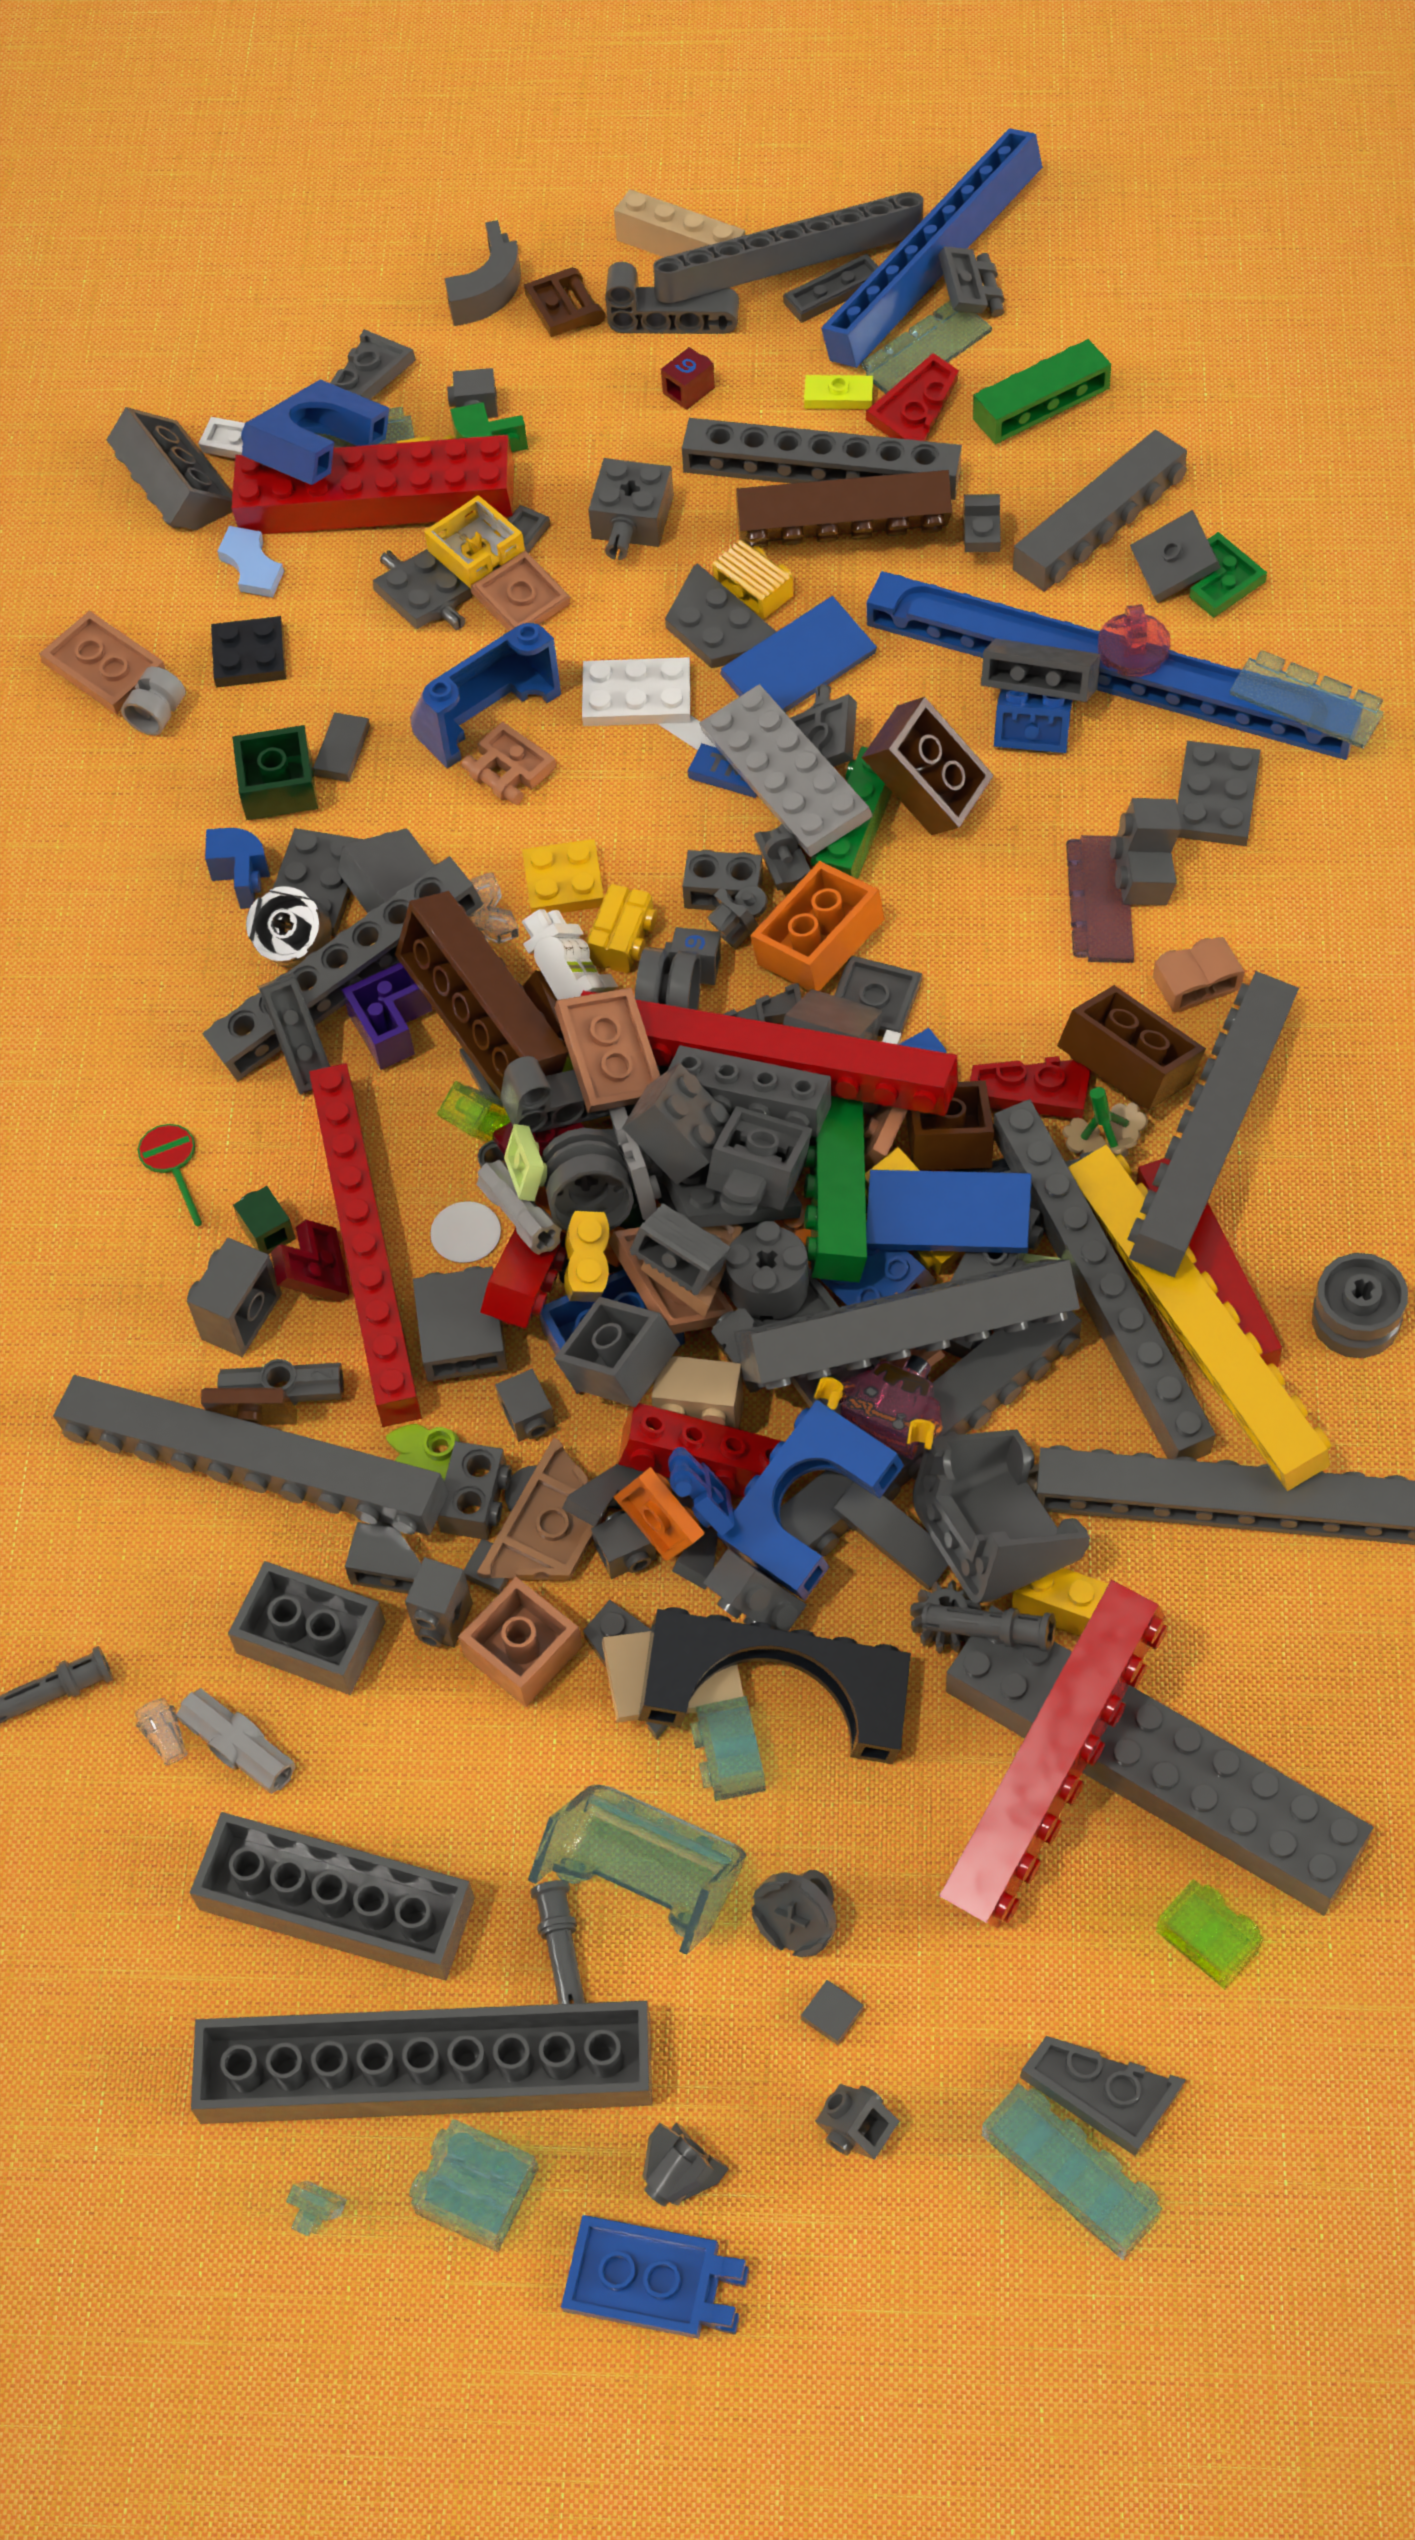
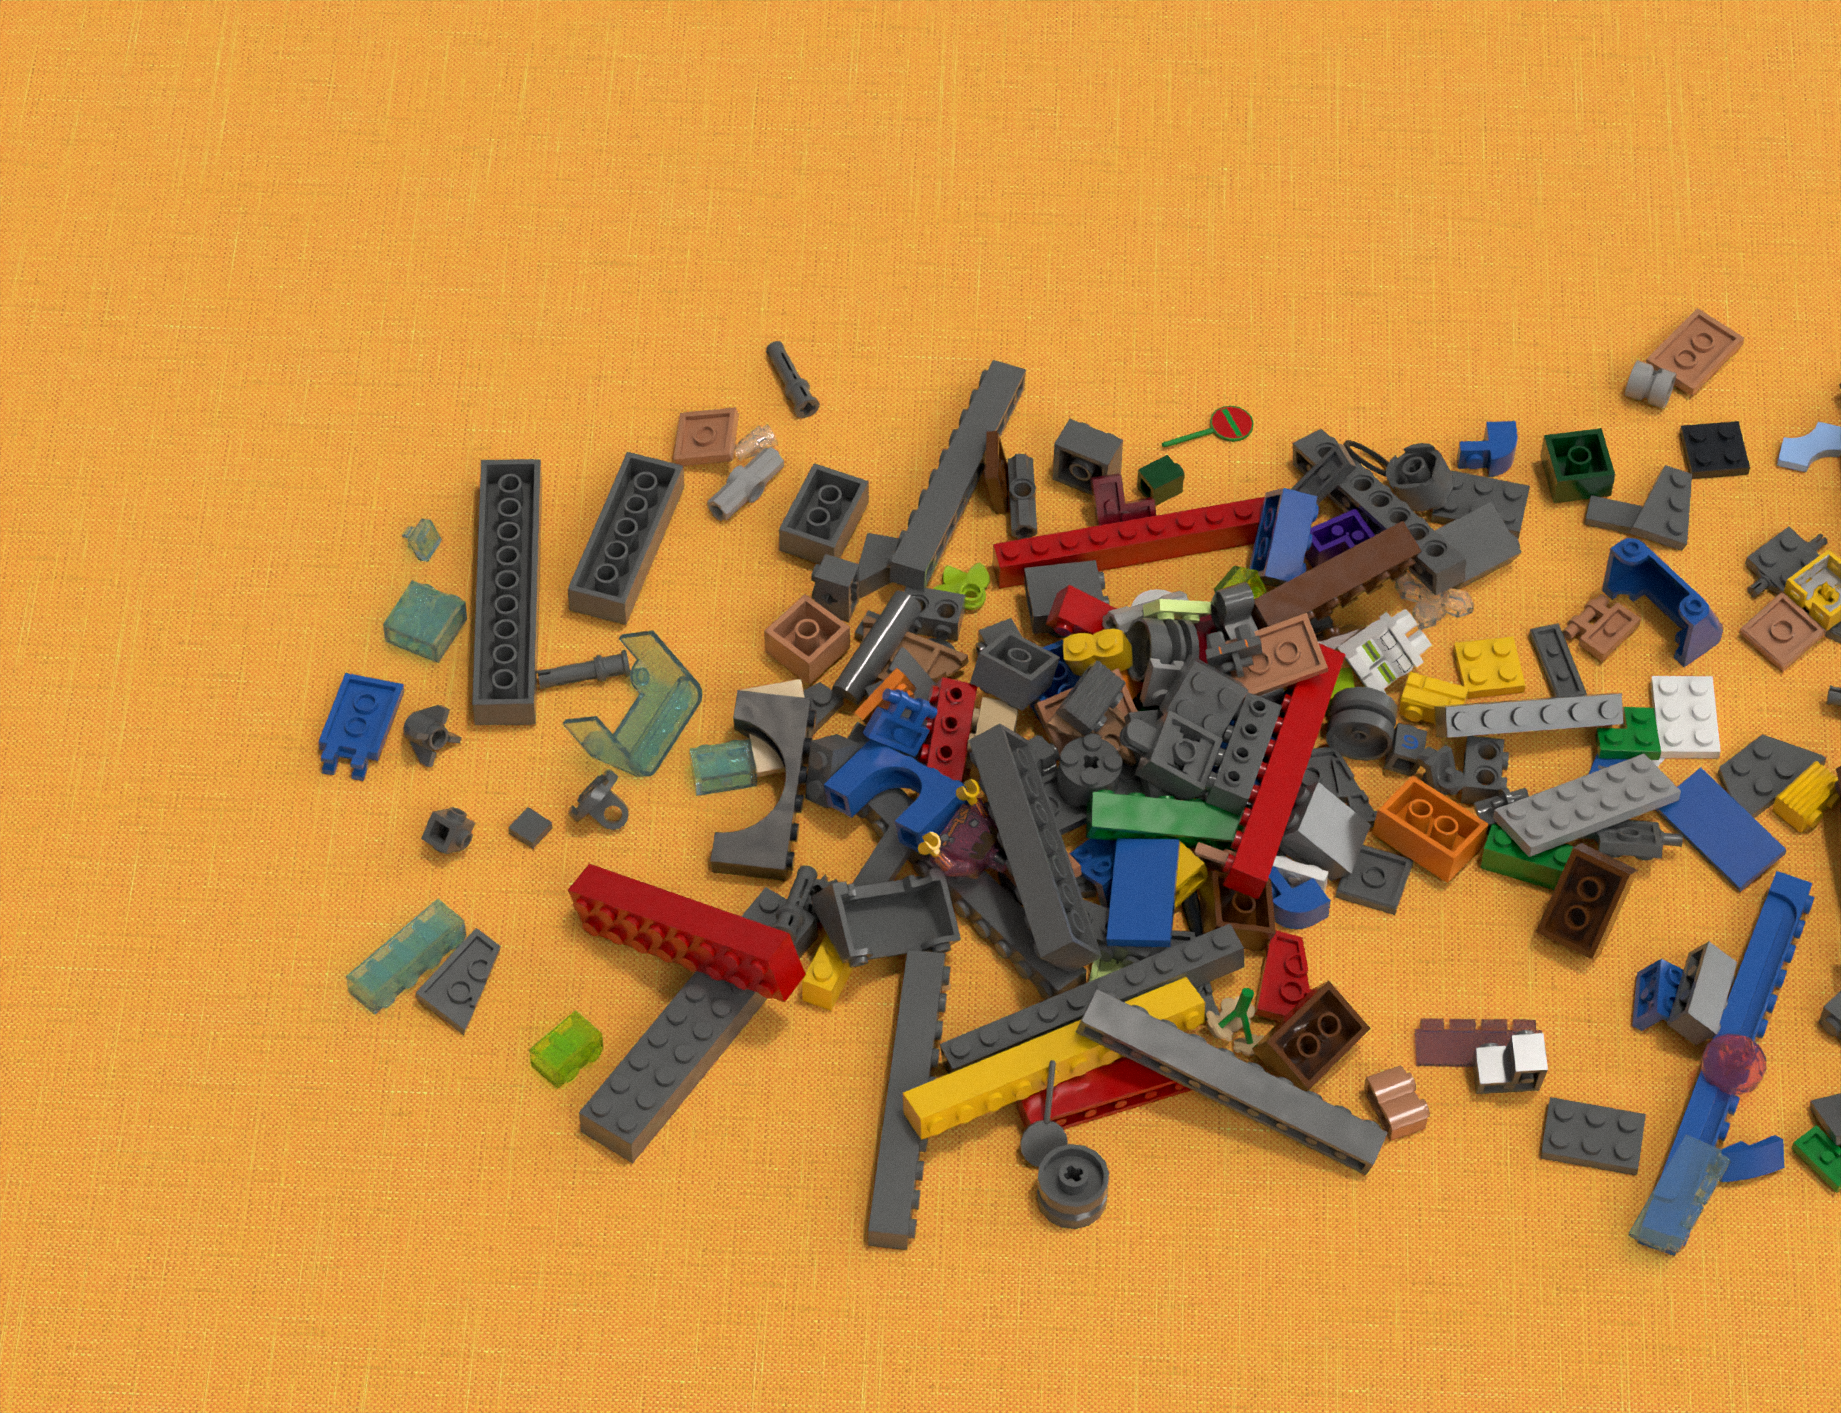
camera: 85 degrees right, 5 degrees down
(150, 1796) = (706, 436): none -> nougat plate
(277, 968) = (1348, 443): none -> black piece
(344, 694) = (1666, 510): none -> dark grey wing
(393, 1062) = (1283, 535): none -> blue brick
(541, 1549) = (877, 647): none -> dark grey brick
(560, 810) = (1556, 661): none -> dark grey tile
(618, 1080) = (1236, 654): none -> dark grey hips
(655, 824) = (1529, 715): none -> brick
(674, 732) = (1637, 737): none -> green plate
(1241, 645) = (1753, 1159): none -> blue slope
(1290, 1332) = (1044, 1134): none -> dark grey piece

